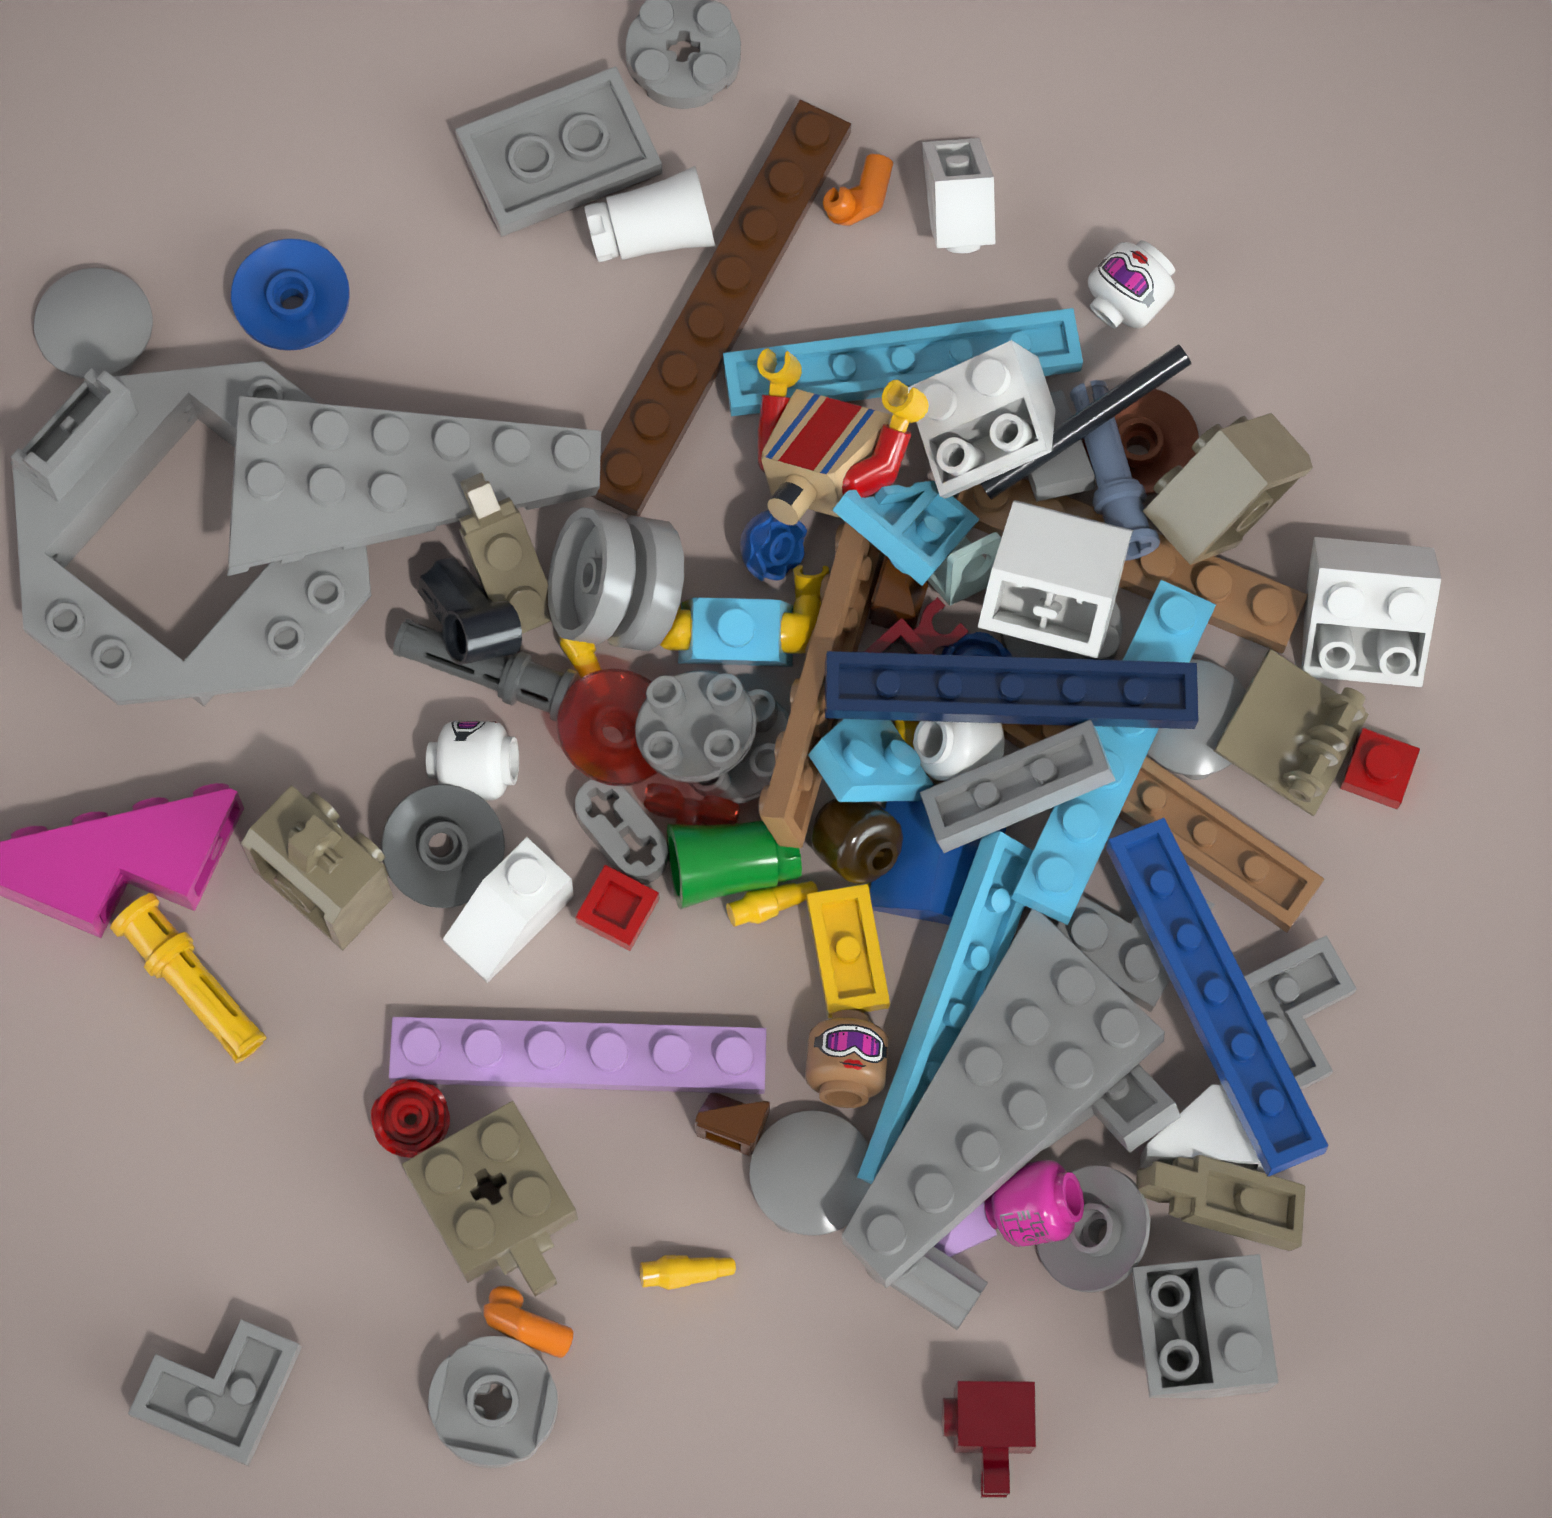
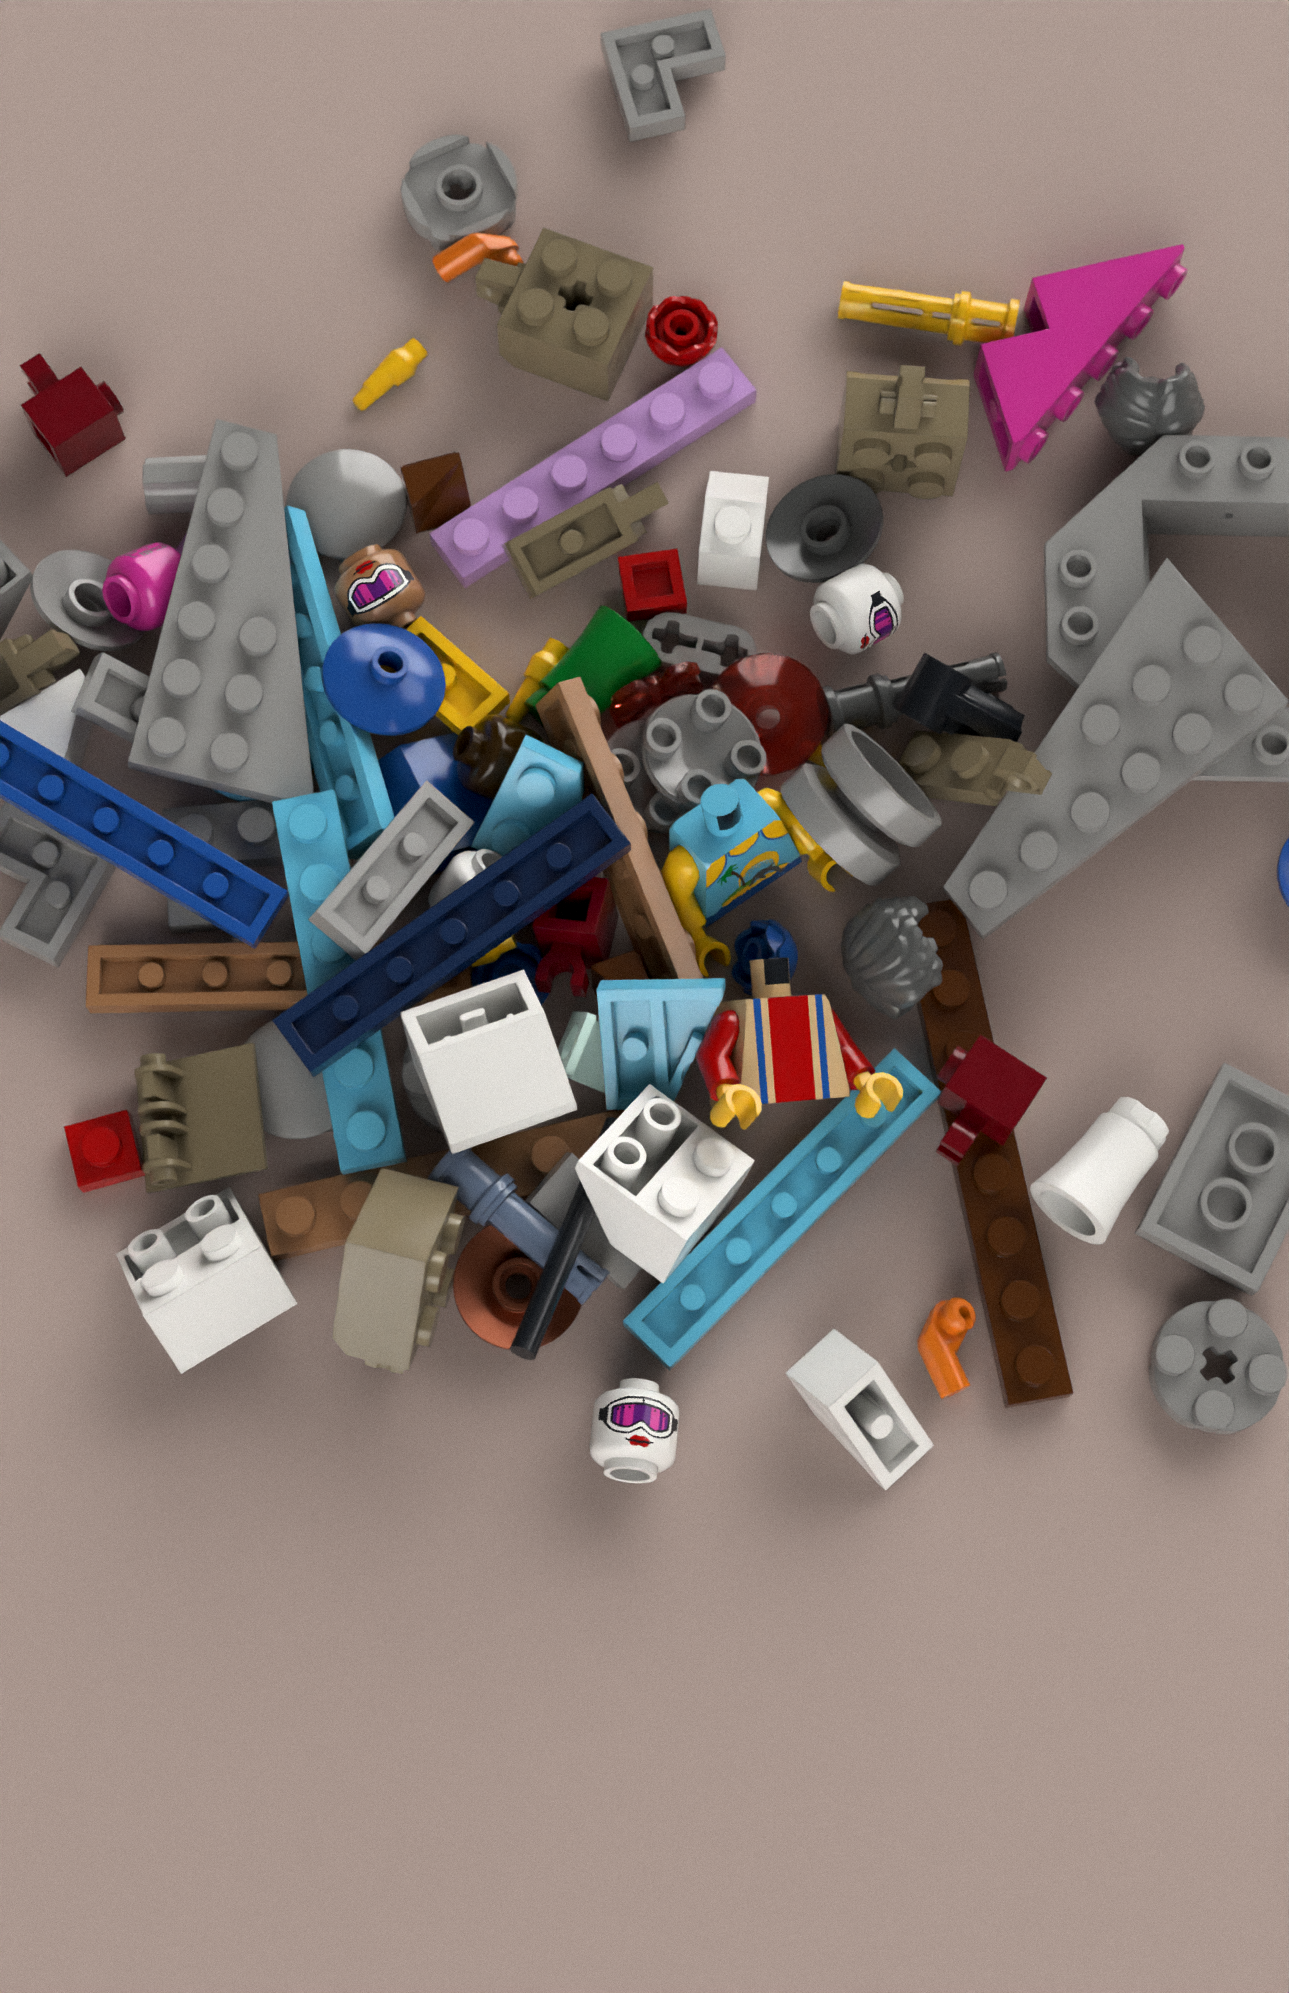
camera: 145 degrees right, 0 degrees up
(99, 741) = (1146, 408): none -> dark grey hair
(638, 989) = (581, 536): none -> dark tan hinge
(684, 466) = (890, 956): none -> dark grey hair
(700, 312) = (987, 1094): none -> dark red brick
(918, 987) = (379, 699): none -> blue dish

